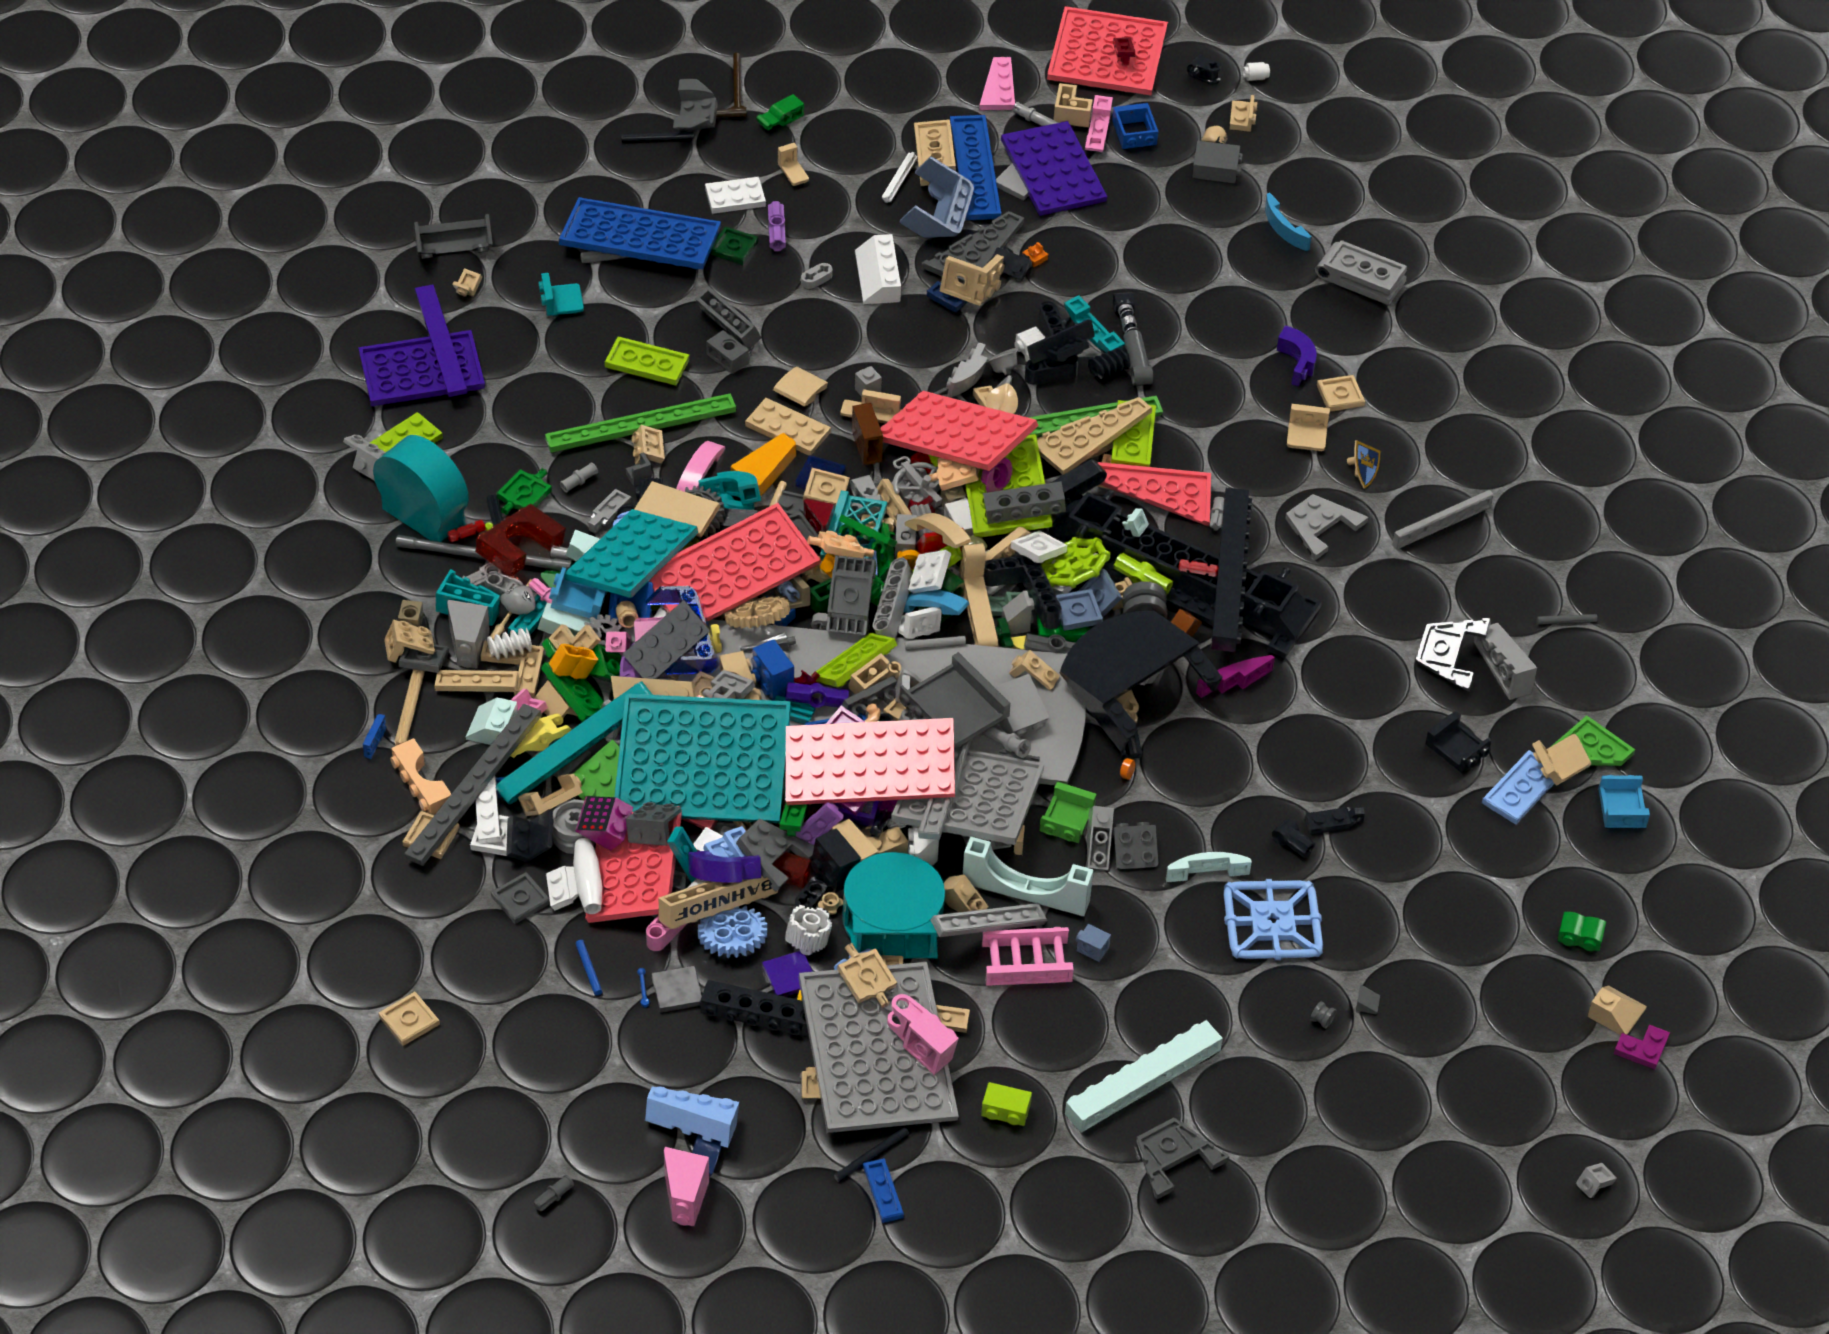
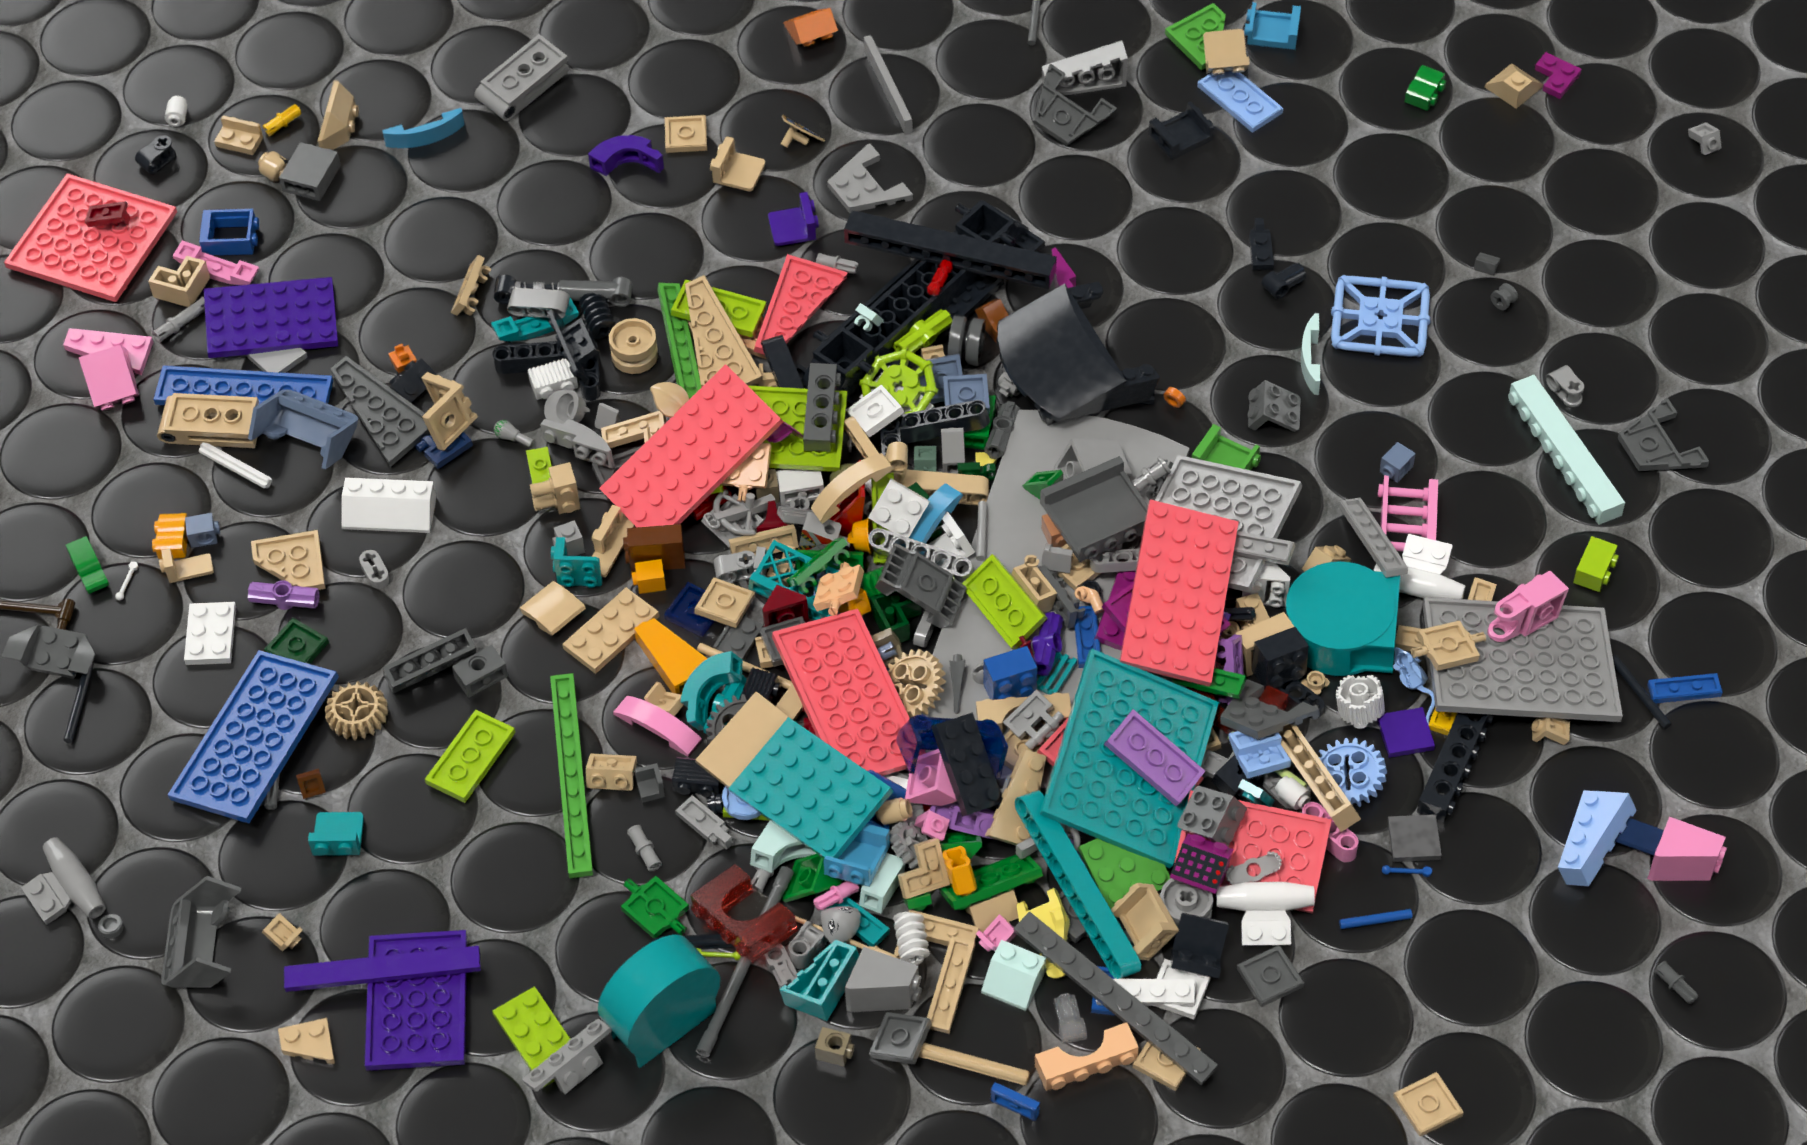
camera: 75 degrees left, 5 degrees up
(379, 317) = (308, 1040): none -> tan wing
(404, 635) = (877, 1052): tan bracket -> none
(450, 766) = (1070, 1025): none -> clear piece
(463, 193) = (110, 926): none -> dark grey tile
(490, 160) = (66, 883): none -> light grey plate
(604, 274) = (311, 783): none -> reddish brown tile
(607, 857) = (1269, 864): none -> light grey piece
(675, 287) = (354, 705): none -> tan gear
(701, 771) = (1154, 757): none -> medium lavender plate
(714, 868) = (1293, 762): dark purple arch -> none
(721, 463) = (665, 700): none -> tan bracket
(760, 139) = (133, 567): none -> white hinge
(814, 226) = (292, 558): none -> tan plate
(820, 153) = (171, 534): none -> light orange brick
(829, 168) = (202, 530): none -> sand blue brick
(840, 382) = (574, 569): none -> teal bracket
(844, 439) = (649, 576): none -> light orange brick
(914, 365) = (558, 491): none -> tan brick
(942, 357) = (538, 464): none -> lime plate
(961, 85) = (109, 377): none -> bright pink slope
(964, 966) = (1425, 564): none -> white plate
(974, 328) = (505, 430): none -> light grey piece
(993, 674) = (1042, 480): none -> green slope
(1035, 667) = (1037, 448): tan bracket -> none
(1064, 893) = (1305, 525): light aqua arch -> none
(1080, 387) = (633, 346): none -> tan wheel
(1099, 837) = (1253, 430): light grey slope -> none
(1107, 320) = (537, 302): none -> light grey beam
(1120, 280) = (470, 286): none -> tan plate
(1224, 1073) = (1566, 386): none -> light grey piece
(1256, 477) = (794, 224): none -> dark purple bracket
(1269, 135) = (282, 120): none -> yellow axle
(1280, 164) = (338, 118): none -> tan wedge
(1496, 456) = (812, 26): none -> orange slope

